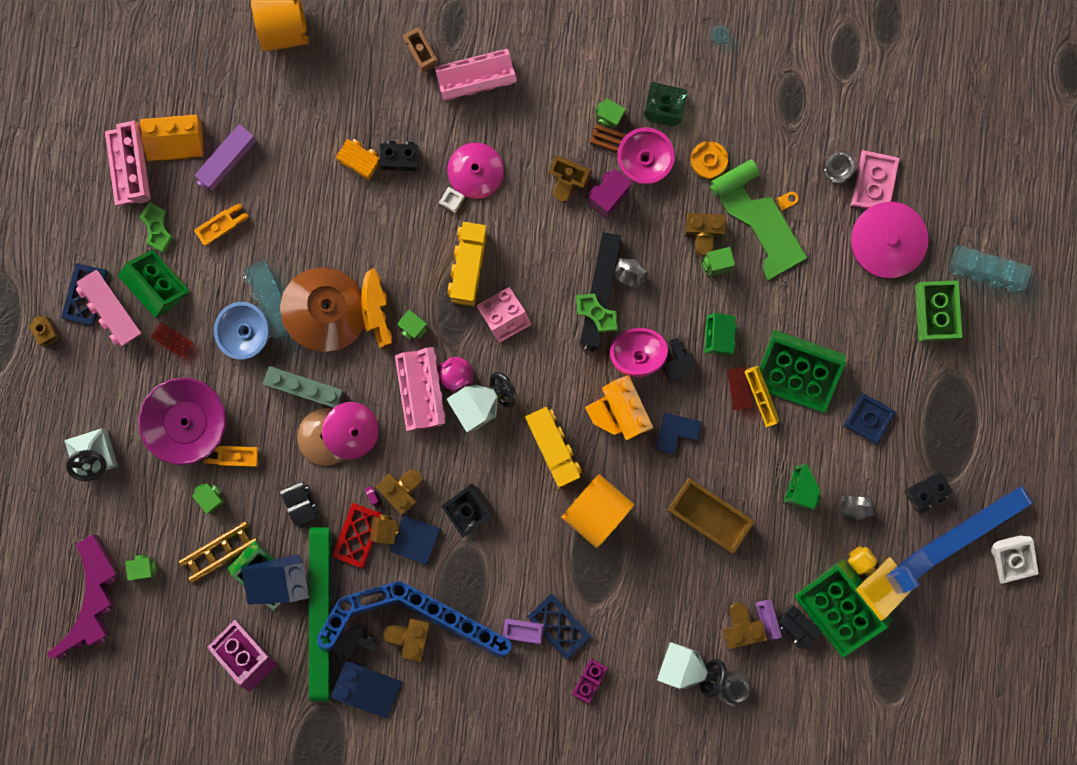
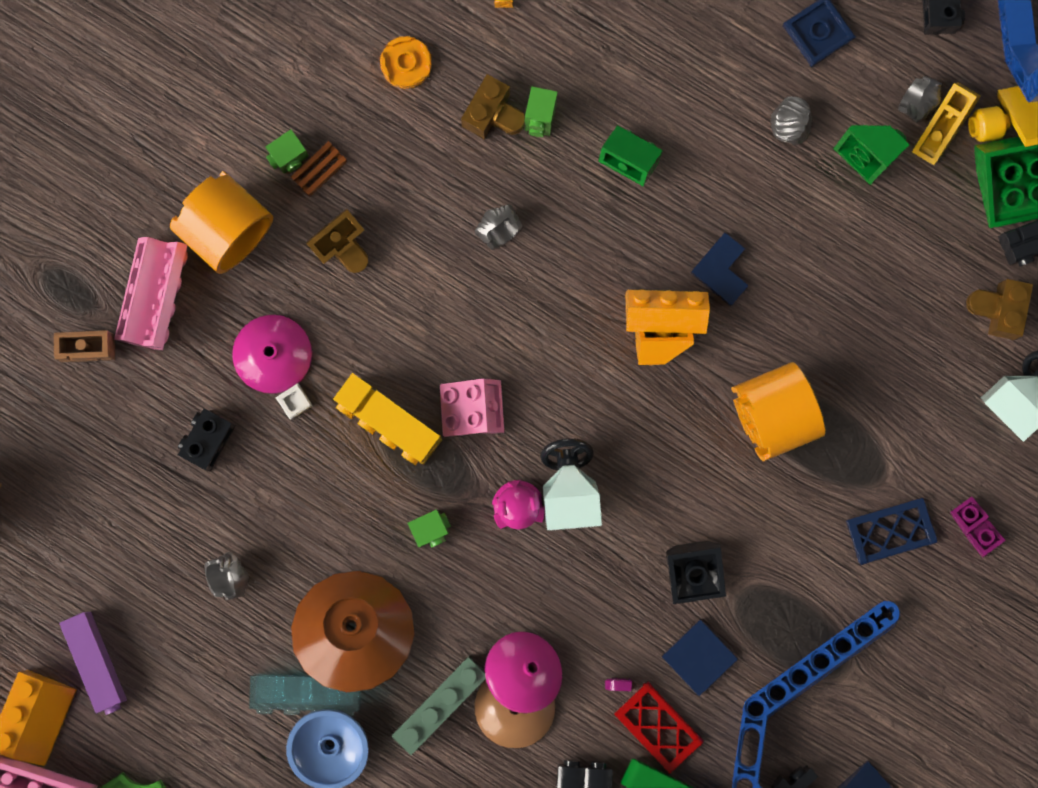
camera: 65 degrees left, 0 degrees up
(220, 225) = (176, 711): light orange hinge -> none
(319, 213) = (226, 576): none -> flat silver hair
(358, 159) = (182, 493): light orange brick -> none
(372, 301) = (373, 565): light orange slope -> none
(384, 529) = (669, 690): pearl gold brick -> none
(399, 490) = (630, 647): pearl gold brick -> none
(411, 638) = (821, 723): pearl gold brick -> none
(420, 389) = (515, 558): bright pink brick -> none
(523, 631) = (877, 578): medium lavender tile -> none
(541, 95) = (221, 222): none -> light orange brick
(552, 446) = (671, 428): yellow piece -> none
(601, 286) = (503, 275): black brick -> none
(604, 319) = (519, 295): bright green tile -> none
(609, 193) = (388, 200): magenta slope -> none
(635, 345) = (595, 255): dark pink dish -> none
(646, 143) = (361, 117): dark pink dish -> none
(665, 104) = (310, 79): clear green slope -> none
(681, 365) = (644, 221): black brick -> none
(710, 516) = (848, 278): pearl gold piece -> none
(739, 388) = (707, 165): clear red slope -> none
(761, 216) = (509, 34): bright green door -> none
(762, 396) = (731, 143): yellow piece -> none
(768, 616) = (999, 270): medium lavender tile -> none
(798, 429) = (791, 120): none -> flat silver hair
(801, 370) = (721, 83): green slope -> none
(850, 532) = (946, 123): none -> yellow slope

